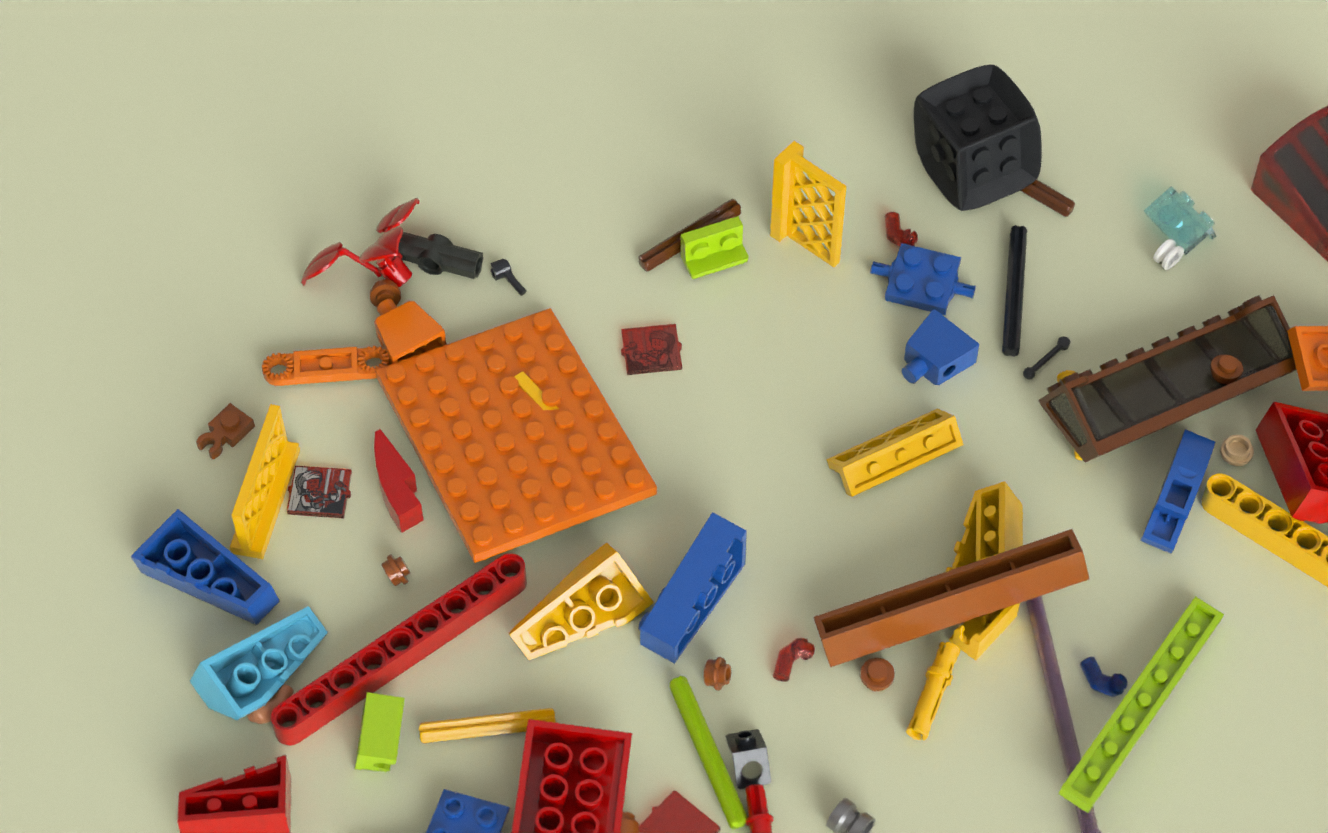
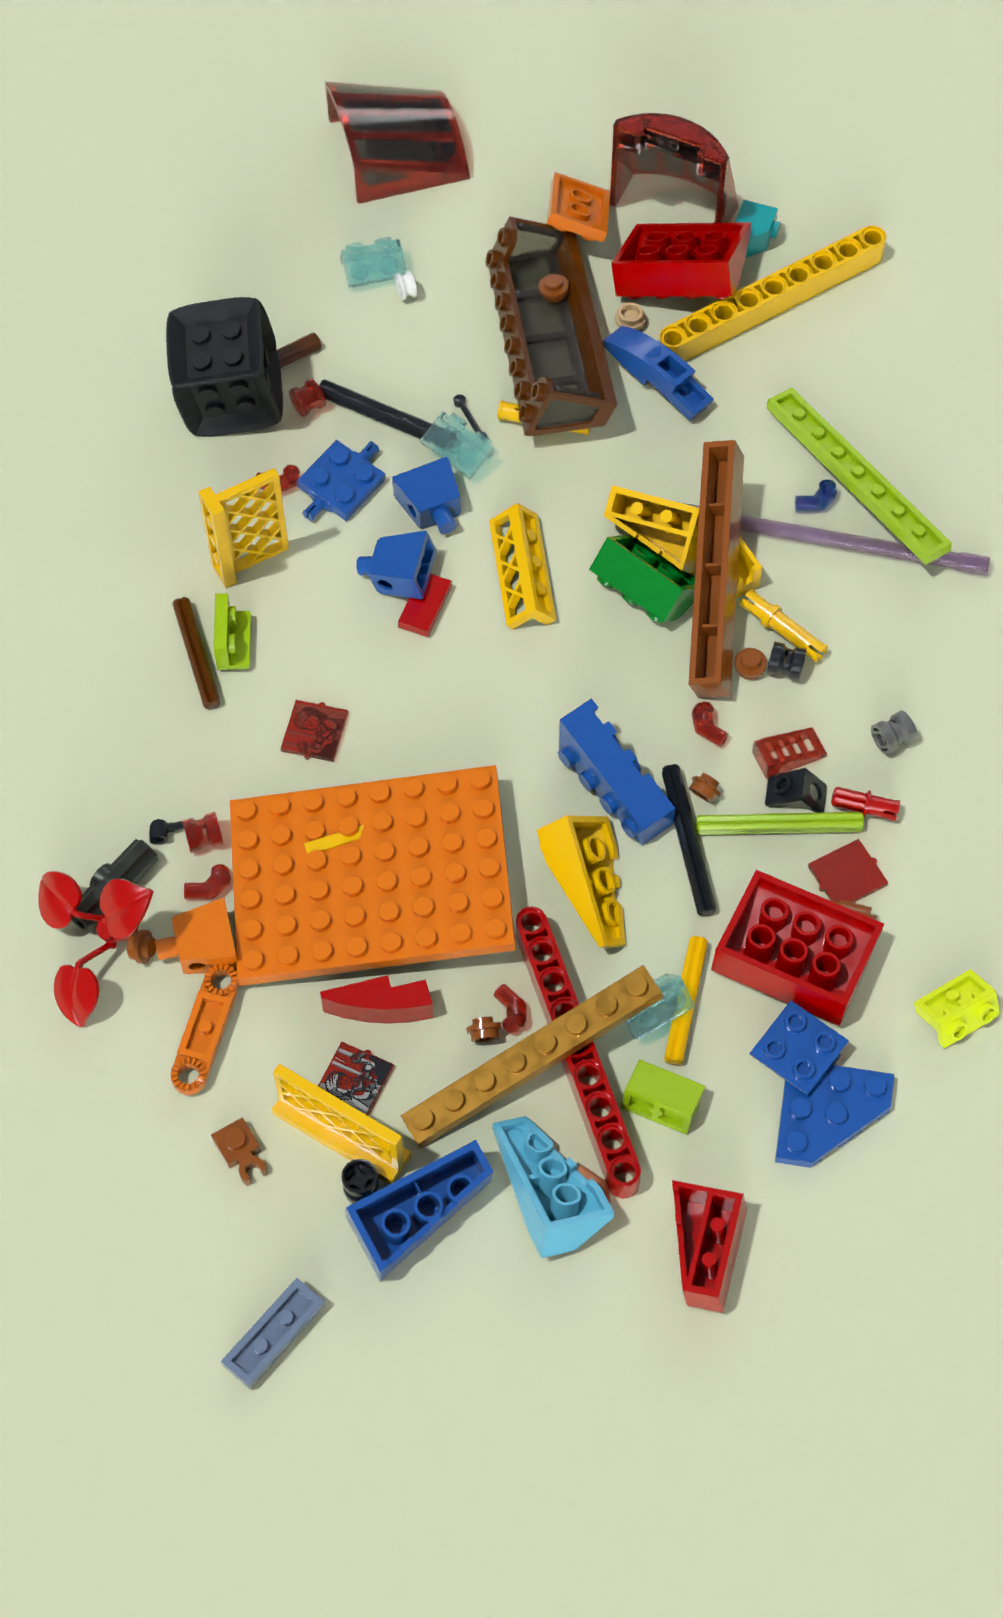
camera: 70 degrees left, 5 degrees up
(67, 506) = (273, 1333): none -> sand blue plate
(218, 521) = (358, 1174): none -> black wheel
(377, 610) = (531, 1056): none -> pearl gold plate
(427, 590) = (515, 1009): none -> clear red arm
(461, 325) = (211, 887): none -> clear red arm
(464, 694) = (675, 1003): none -> clear light blue bracket
(512, 301) = (195, 835): none -> clear red wheel
(657, 678) = (689, 841): none -> black axle
(789, 717) = (770, 766): none -> clear red slope
(820, 387) = (421, 614): none -> red tile
(847, 350) = (400, 564): none -> blue torso
(891, 704) = (794, 661): none -> black wheel
(925, 542) = (644, 578): none -> green slope
(997, 221) = (307, 397): none -> clear red wheel
(1003, 351) = (463, 448): none -> clear light blue bracket

